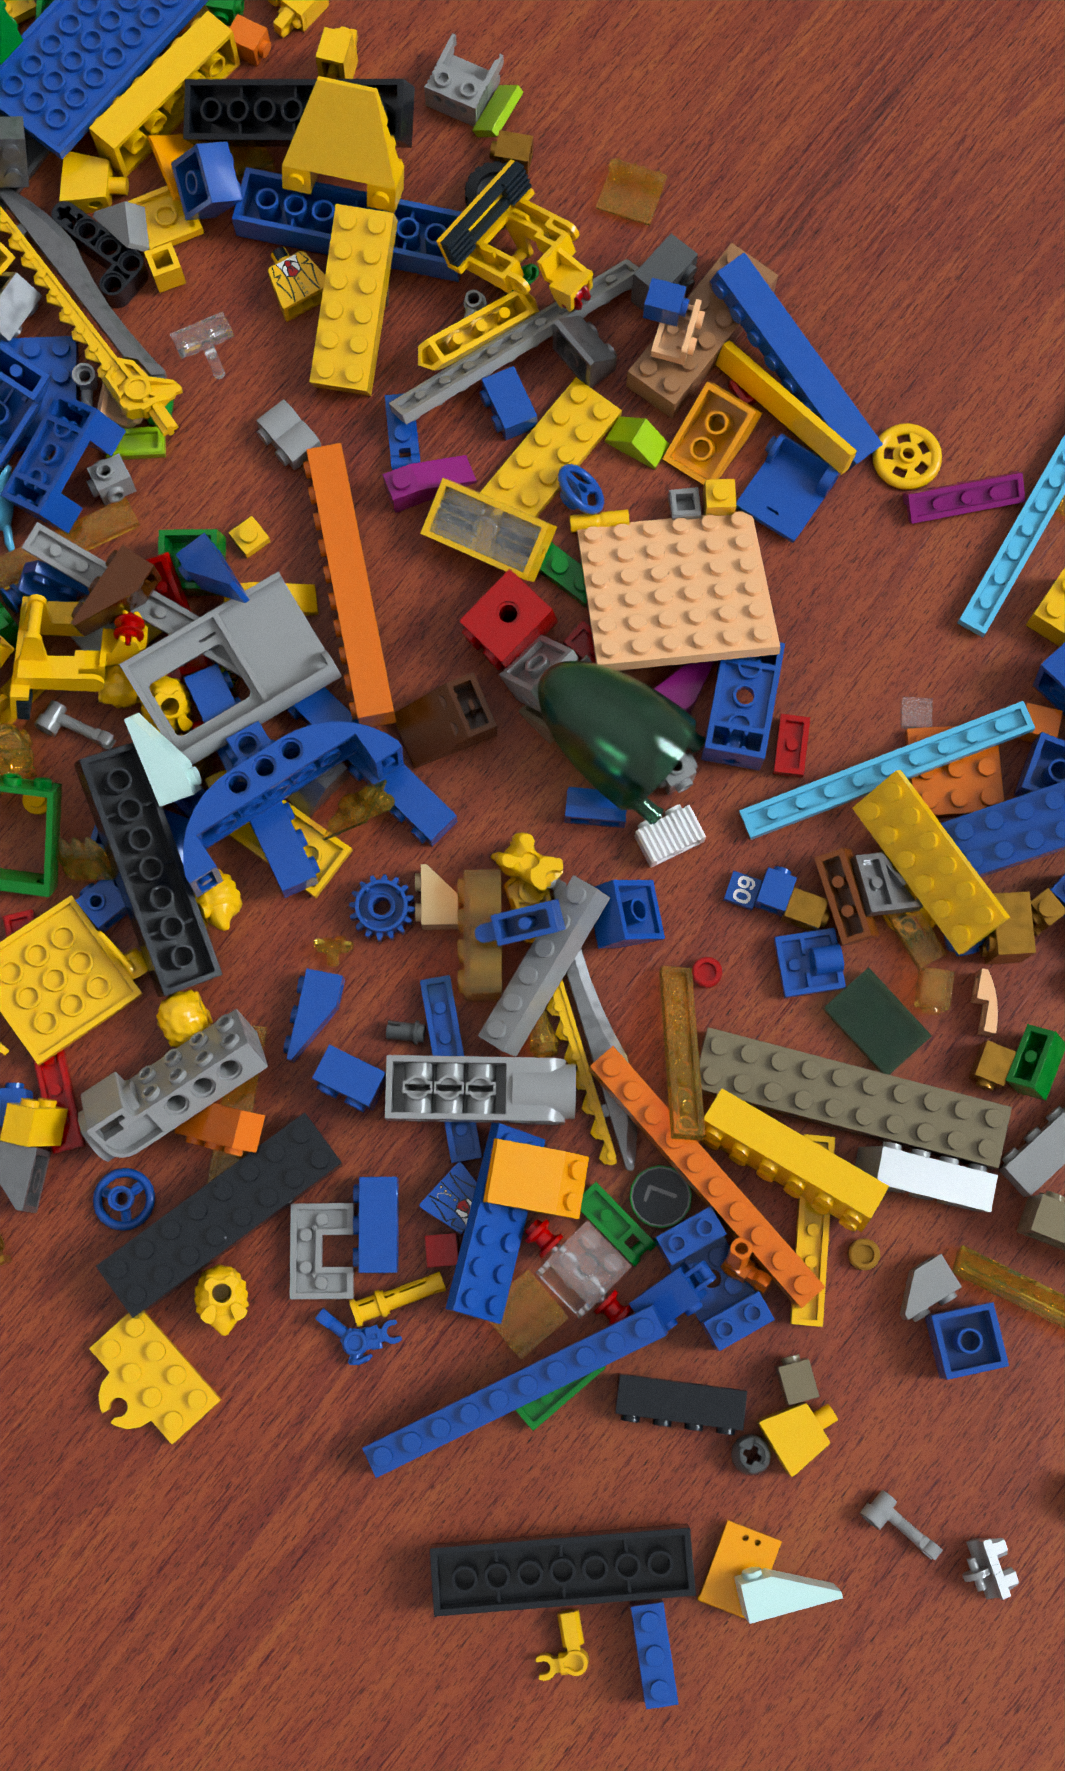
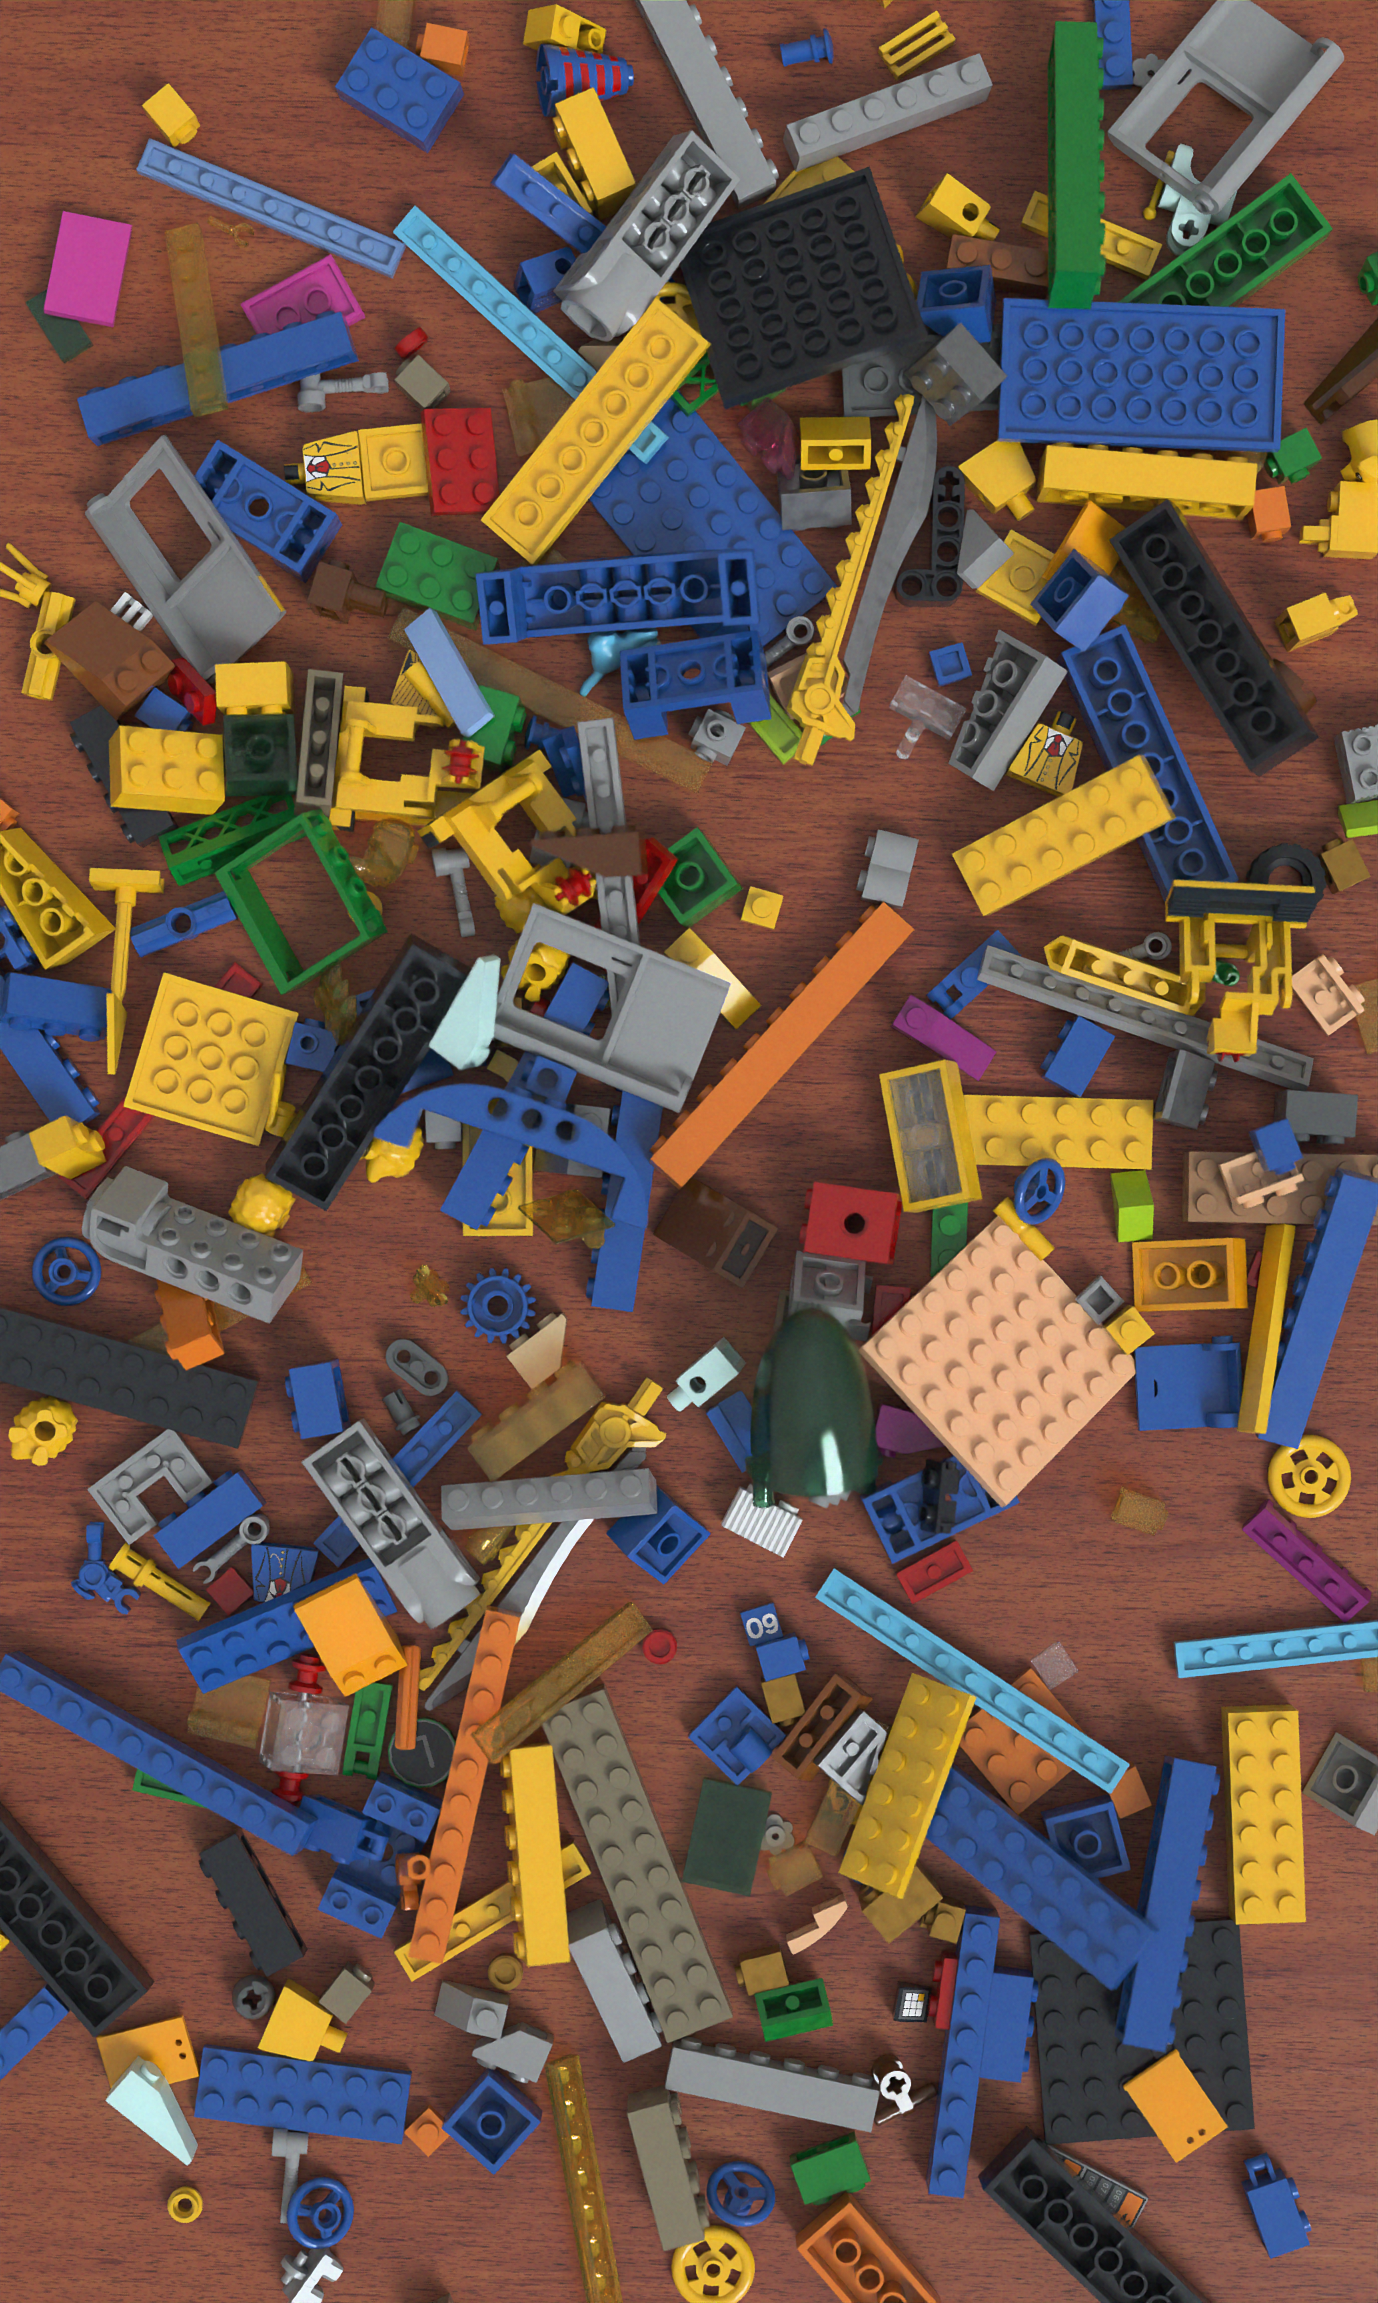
camera: 50 degrees right, 10 degrees up
(165, 267) = (967, 621): yellow brick -> none
(185, 301) = (950, 664): none -> blue plate
(209, 569) = (689, 910): blue slope -> none
(230, 854) = (442, 1131): none -> light grey brick
(241, 282) = (1005, 709): none -> light grey wedge
(318, 1003) = (366, 1314): blue slope -> none
(345, 138) = (1209, 716): yellow wedge -> none
(382, 996) = (417, 1367): none -> dark grey plate
(410, 1215) = (246, 1535): none -> light grey brick
(522, 923) = (565, 1460): blue brick -> none
(524, 862) = (632, 1408): yellow animal -> none
(539, 784) = (715, 1366): none -> light aqua torso
(593, 216) = (1326, 994): none -> light nougat bracket
(615, 1177) = (408, 1699): none -> orange axle
(730, 684) = (935, 1512): none -> black hinge
(849, 1473) = (303, 2094): none -> blue plate
(850, 579) = (1139, 1511): none -> clear yellow brick
(874, 1296) = (472, 2009): none -> light grey slope
(881, 1625) = (177, 2211): none -> yellow plate
(908, 985) = (785, 1840): none -> light grey plant
(942, 1397) = (427, 2130): none -> orange plate
(959, 1514) = (331, 2218): none -> blue piece

